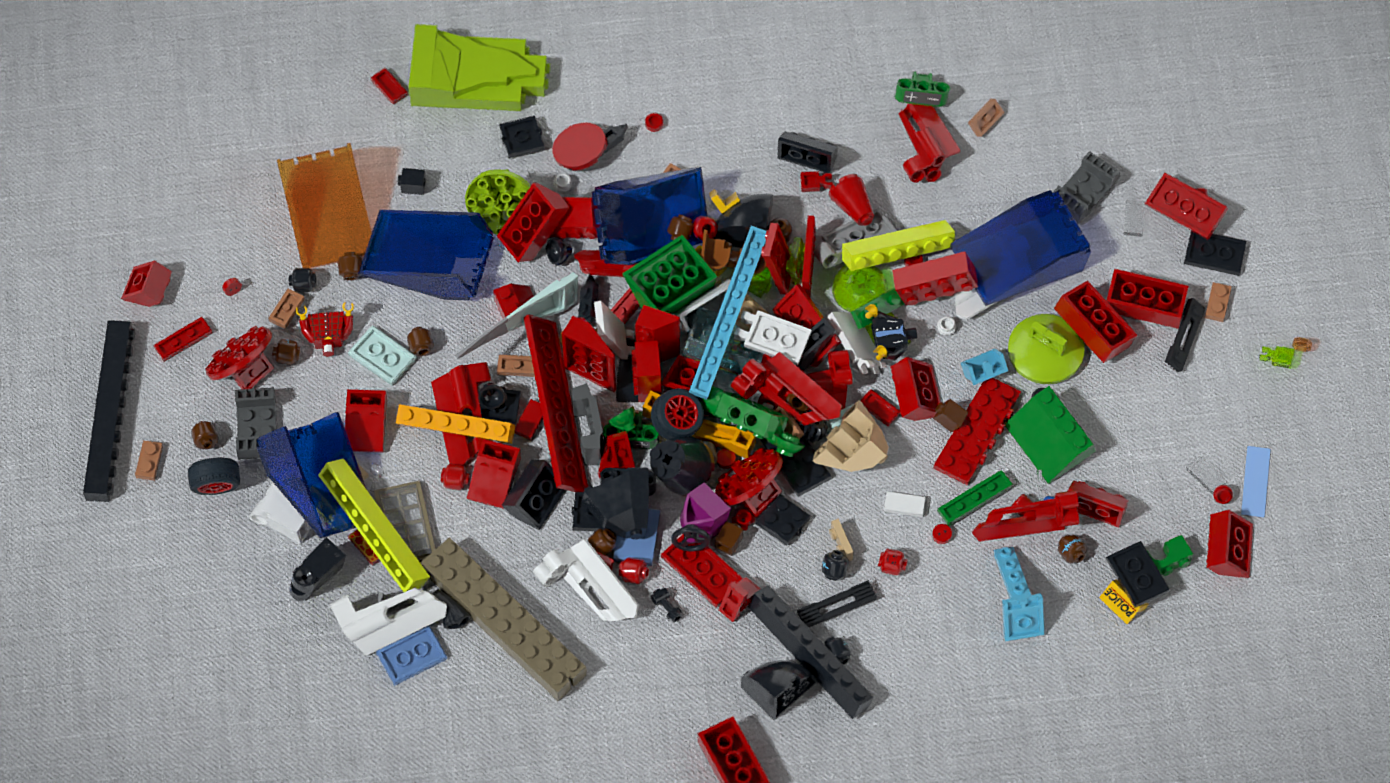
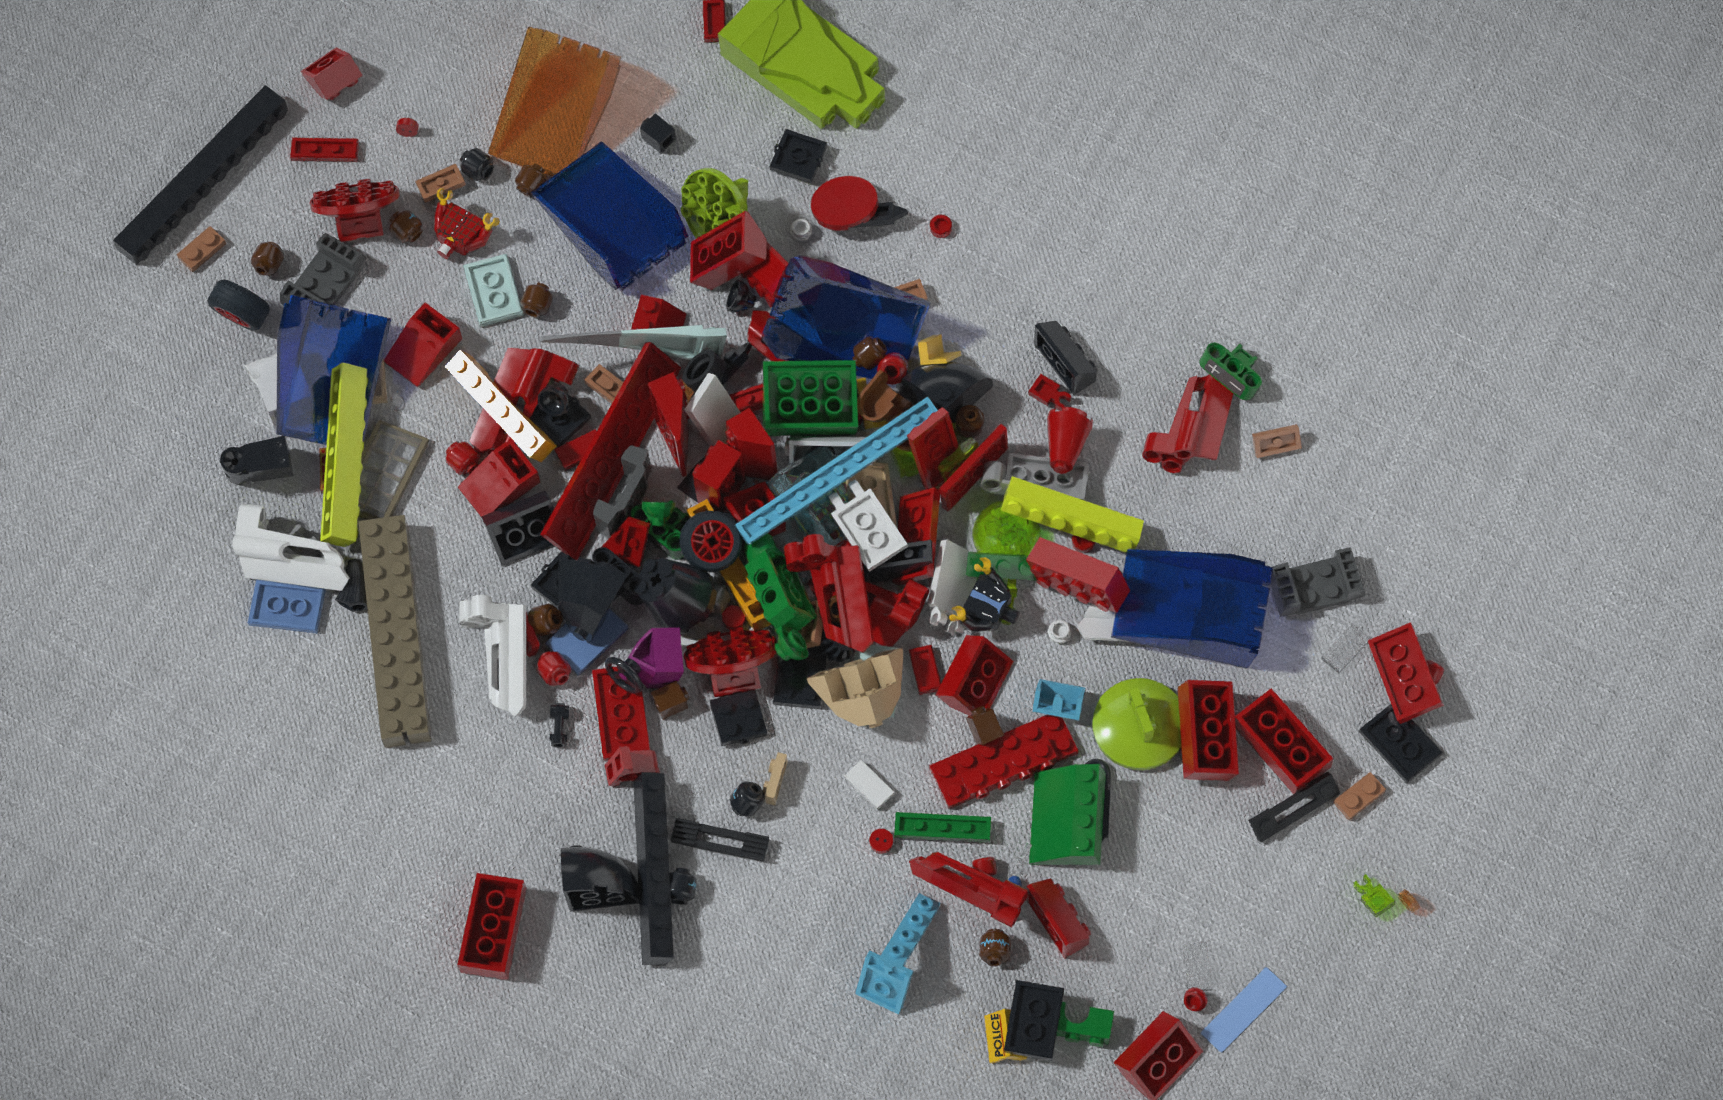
camera: 40 degrees right, 5 degrees up
(571, 303) = (700, 366): none -> black tyre
(743, 514) = (695, 686): red plate -> none
(892, 562) = (806, 835): red head -> none

